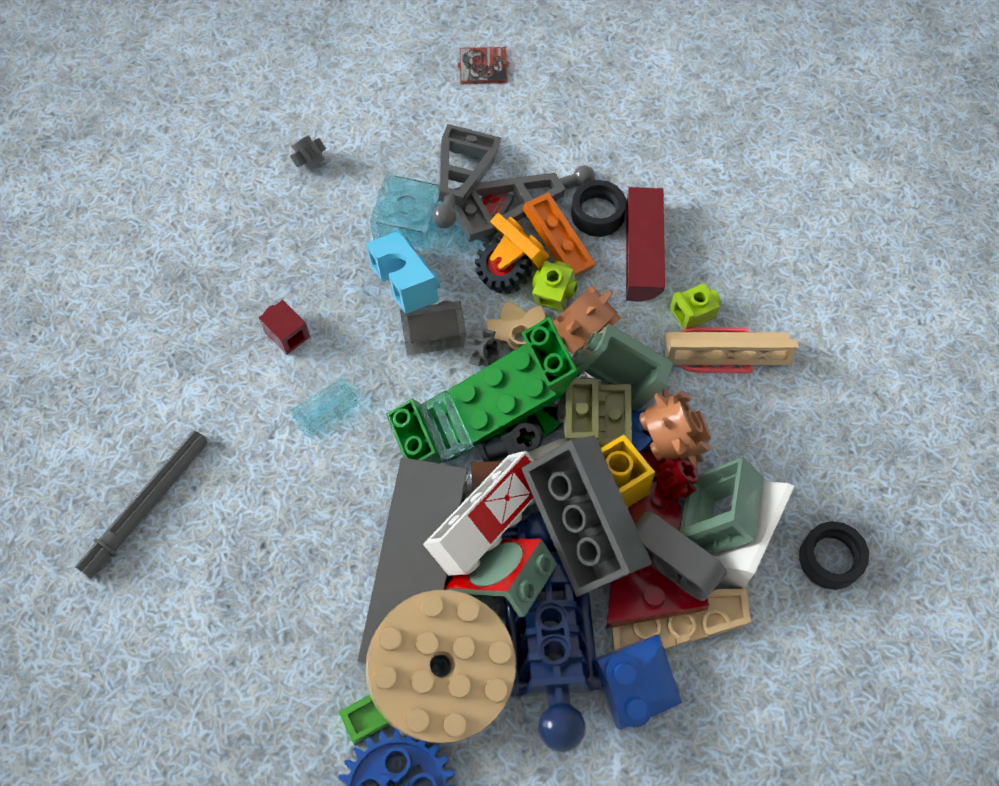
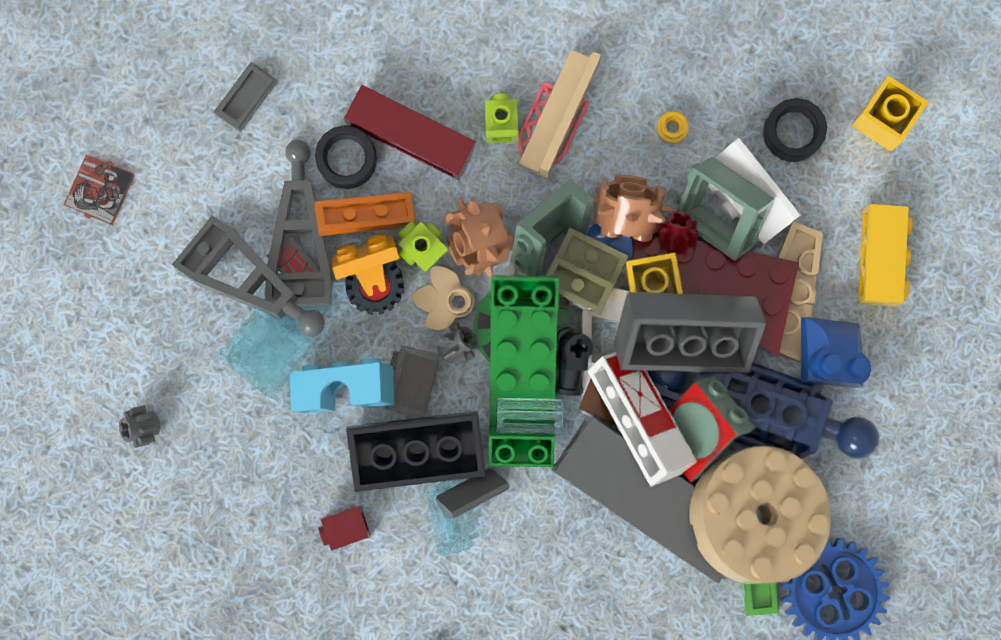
camera: 65 degrees left, 20 degrees up
(354, 411) = (471, 494): none -> dark grey slope
(375, 351) = (415, 451): none -> black brick
(607, 126) = (245, 96): none -> dark grey tile
(679, 557) = (752, 269): dark grey beam -> none
(762, 694) = (884, 255): none -> yellow brick
(777, 441) = (672, 117): none -> yellow plate
(904, 635) = (890, 113): none -> yellow head

